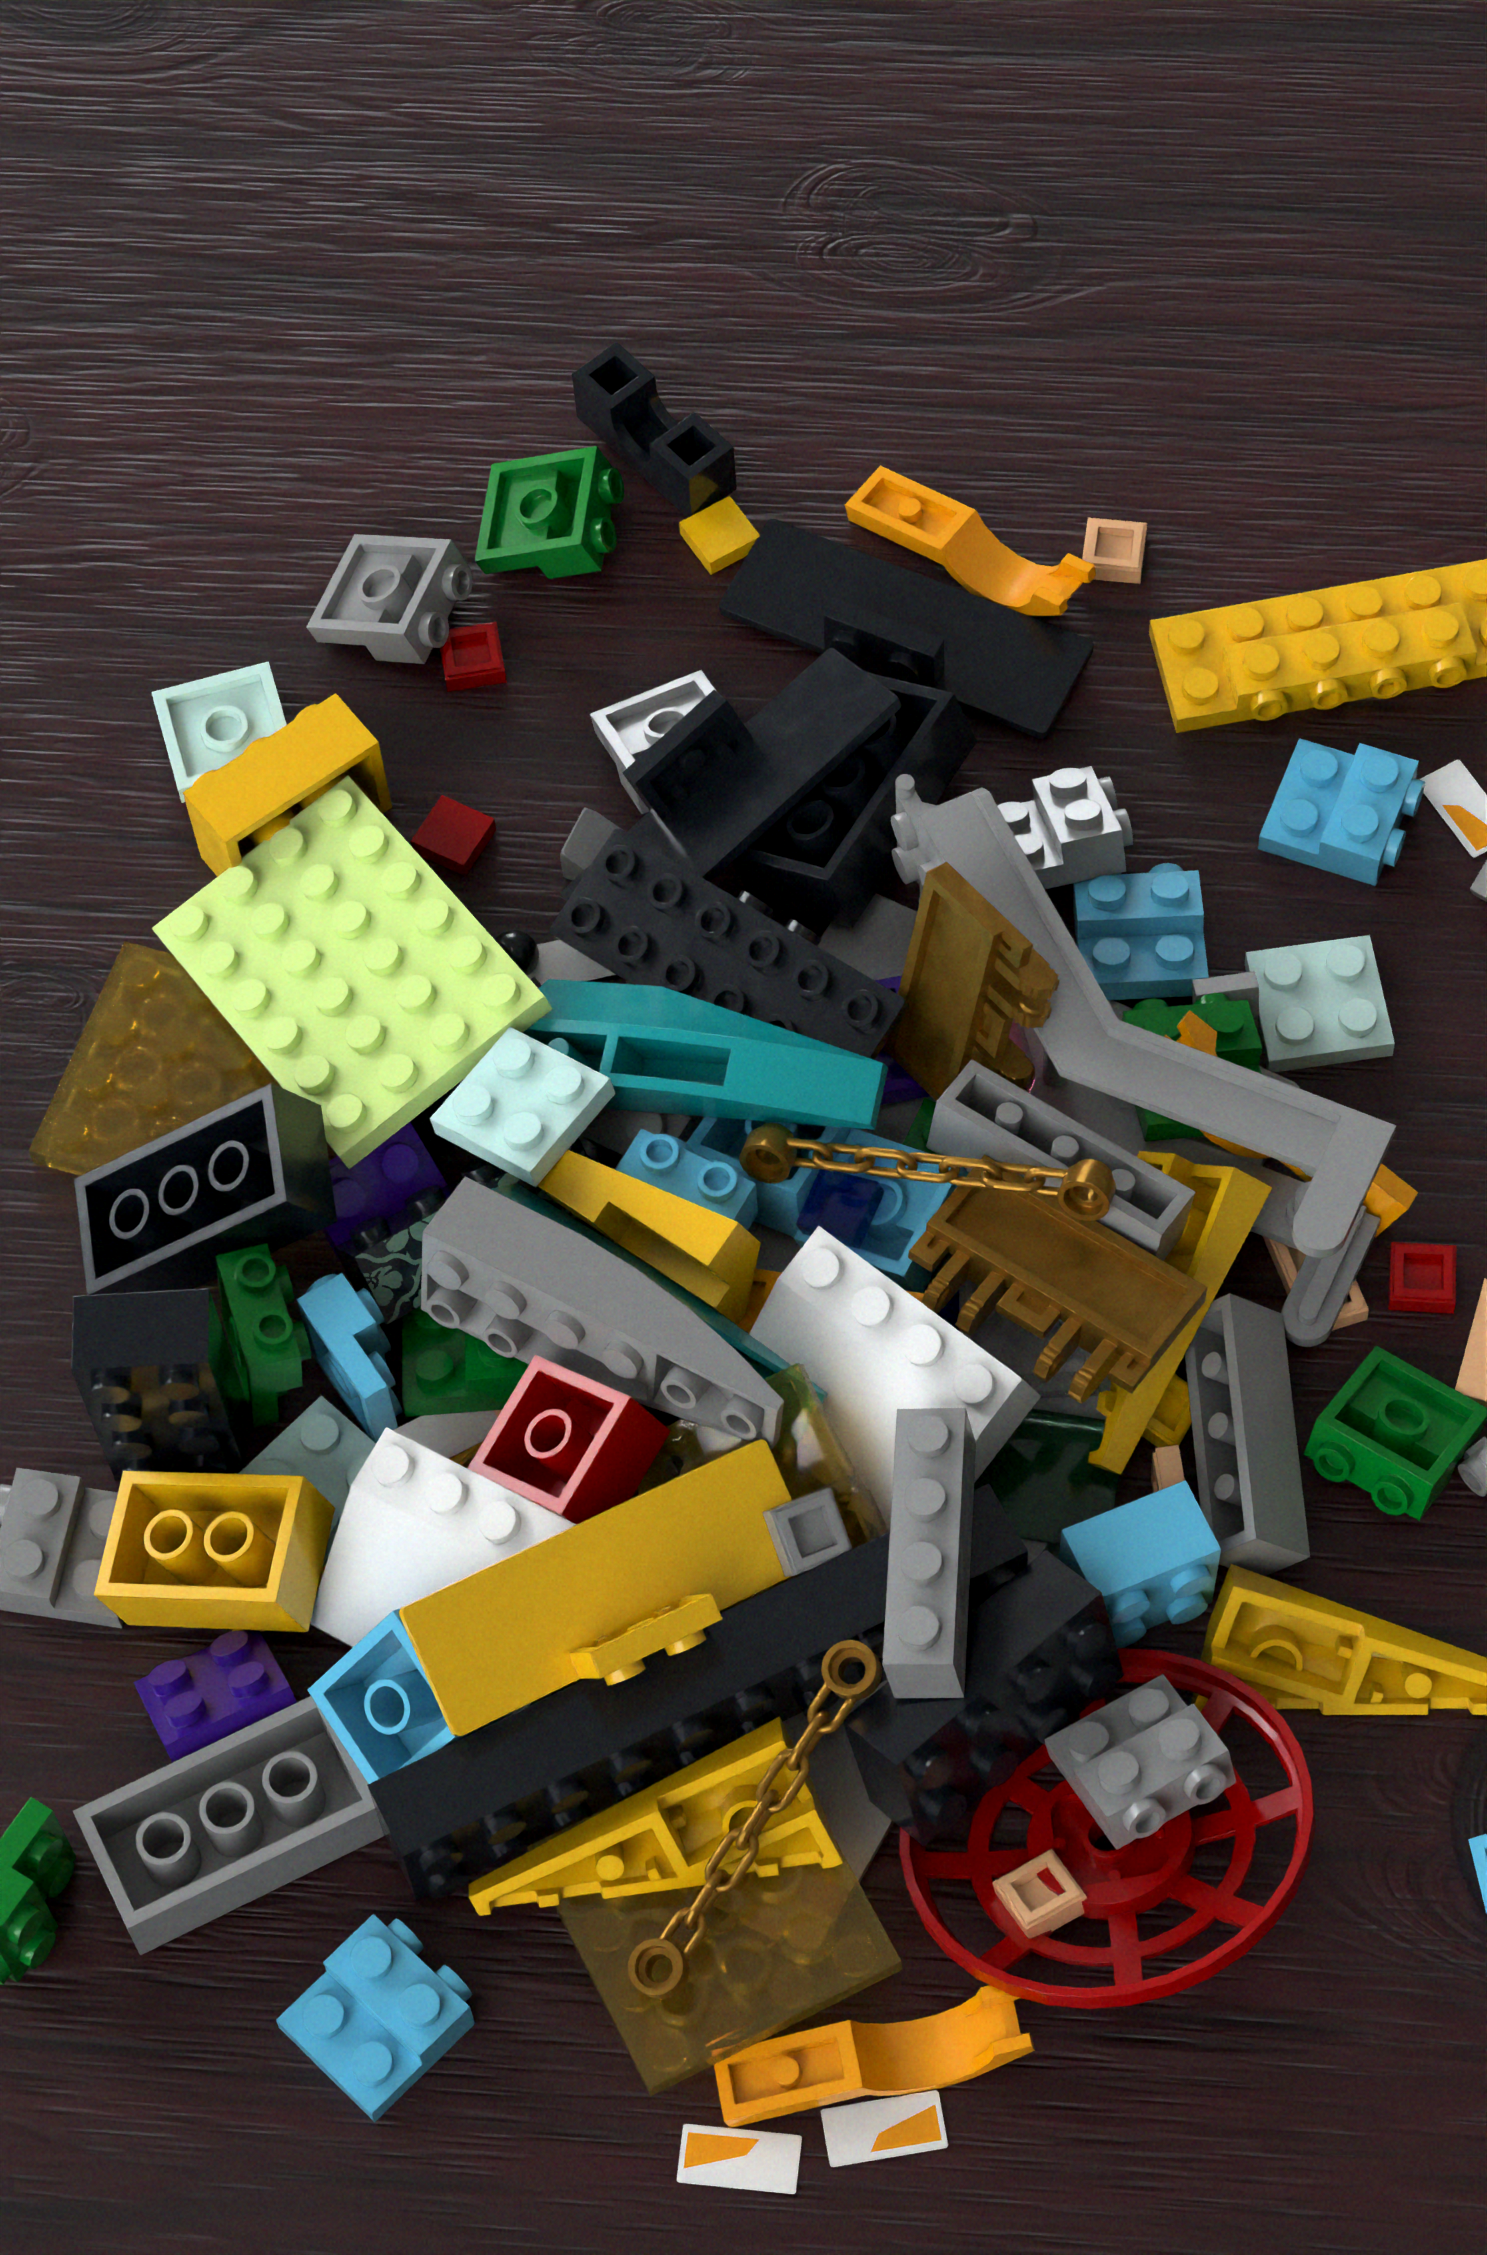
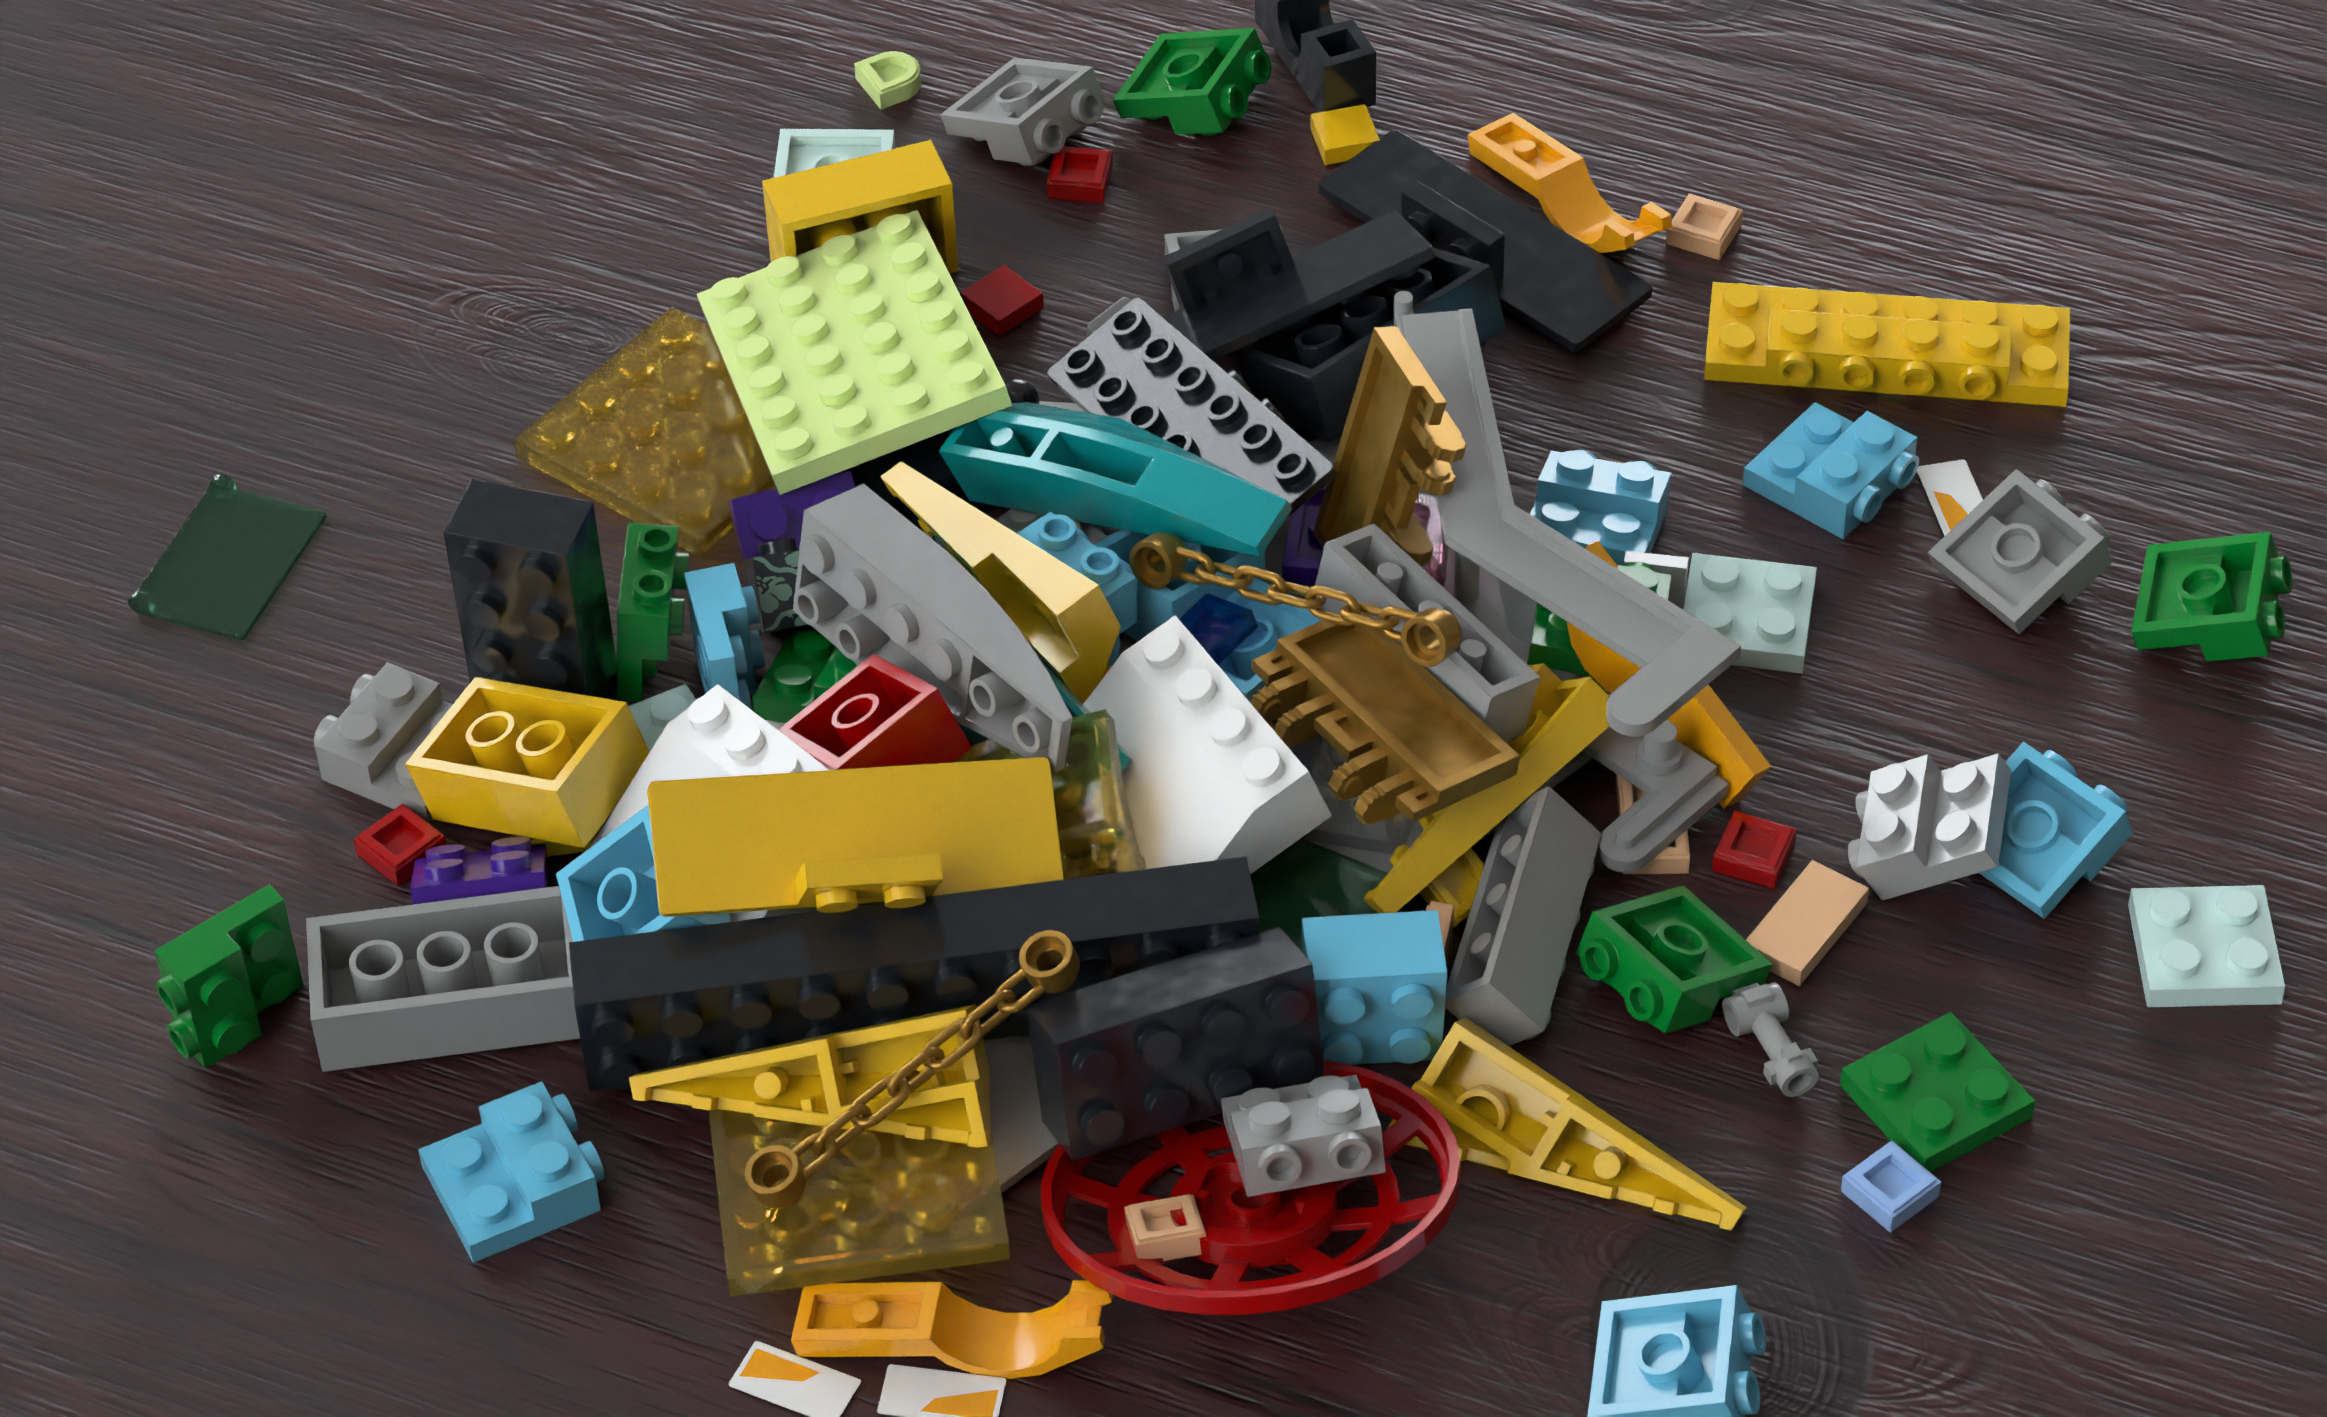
camera: 15 degrees right, 15 degrees down
(108, 1666) = (396, 842): none -> red tile
(204, 1191) = (670, 467): black brick -> none
(231, 588) = (889, 77): none -> yellowish green tile
(522, 1106) = (949, 465): light aqua plate -> none
(807, 1532) = (1059, 847): light grey tile -> none
(929, 1553) = (1158, 880): light grey brick -> none
(1071, 827) = (1568, 416): light grey plate -> none

